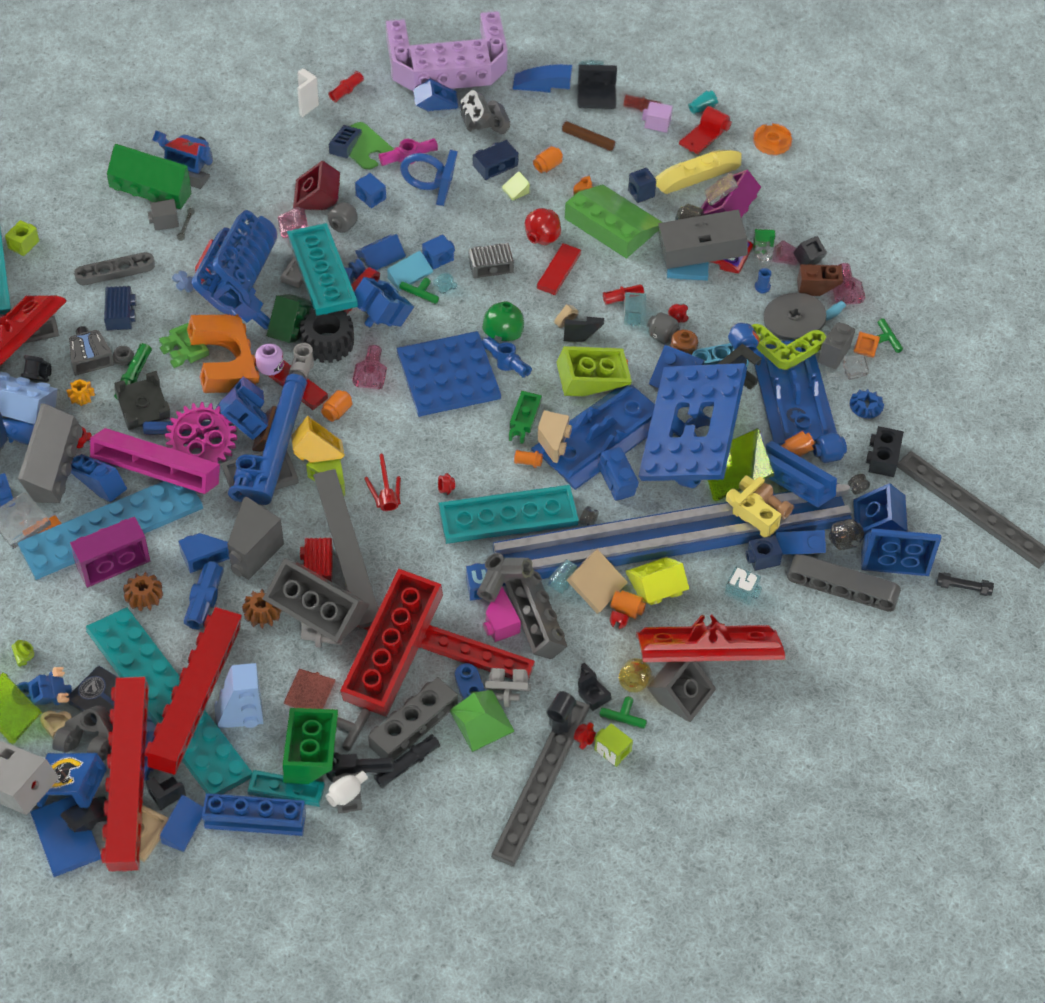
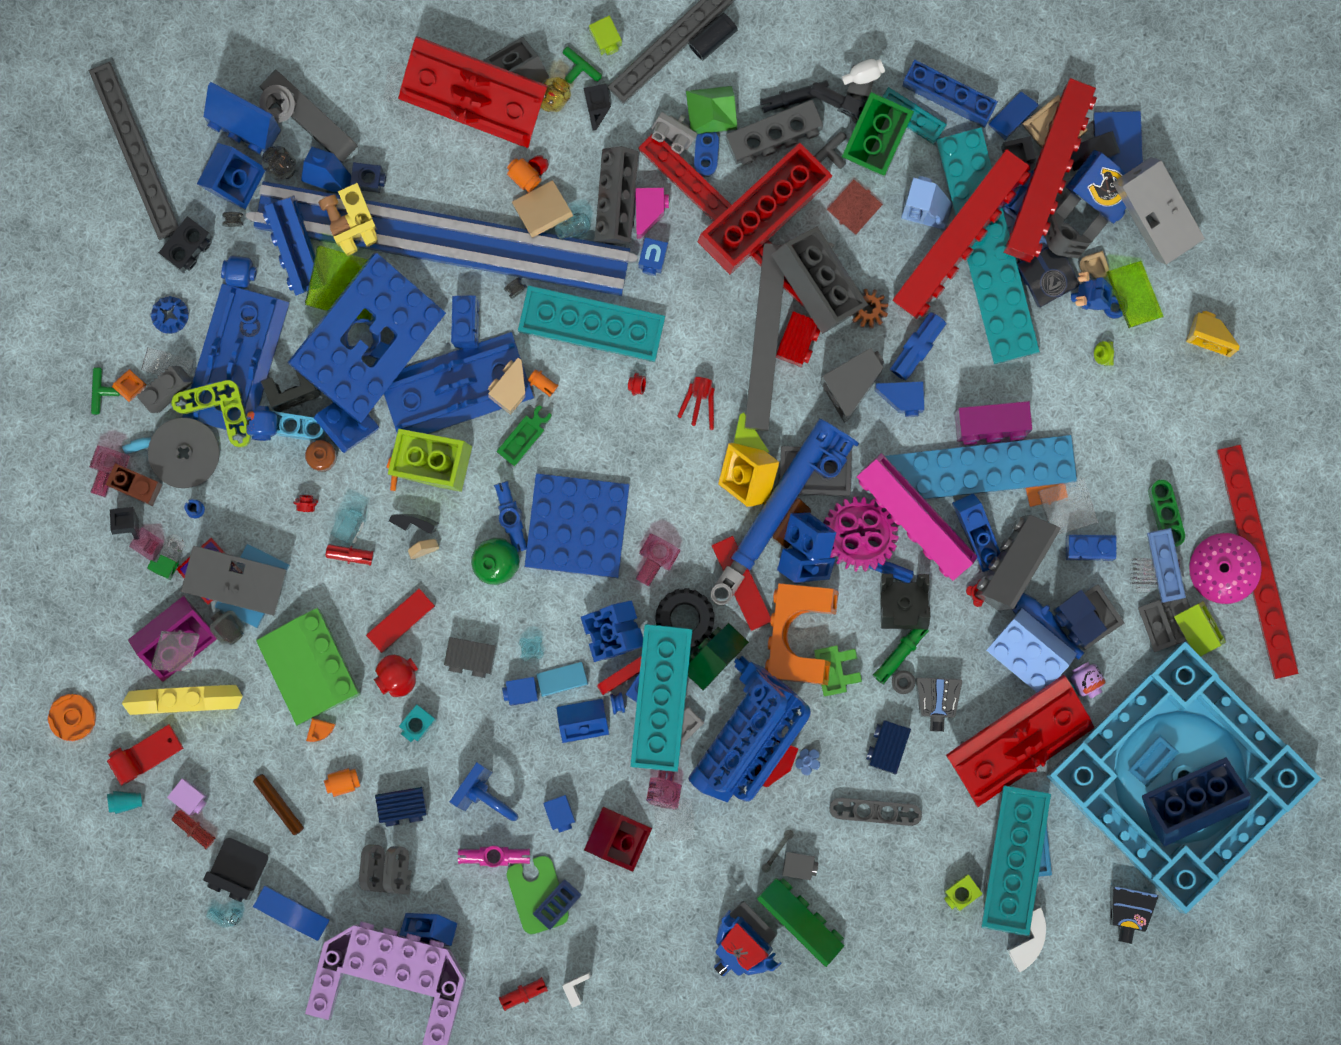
camera: 155 degrees left, 30 degrees up
(36, 368) = (1001, 687): black piece -> none
(80, 392) = (968, 642): light orange gear -> none
(143, 591) = (982, 371): dark orange gear -> none
(269, 359) = (758, 591): lavender head -> none
(336, 405) = (708, 524): orange brick -> none
(342, 217) = (605, 782): dark grey head -> none
(420, 291) = (562, 647): green piece -> none
(500, 571) = (626, 235): dark grey piece -> none
(509, 208) = (425, 717): none -> teal brick
(510, 782) = (713, 36): none -> black pin
(516, 186) = (395, 757): yellowish green slope -> none
(561, 712) = (643, 69): black piece -> none
(585, 735) = (625, 56): red plate -> none
(642, 185) = (258, 693): dark blue brick -> none
(658, 580) = (483, 191): neon yellow slope -> none
(662, 327) = (330, 489): dark grey head -> none
(743, 586) = (405, 149): clear light blue brick -> none
(799, 444) = (269, 285): orange brick -> none
(869, 570) = (268, 100): none -> light grey gear
(945, 580) = (177, 59): black bar -> none

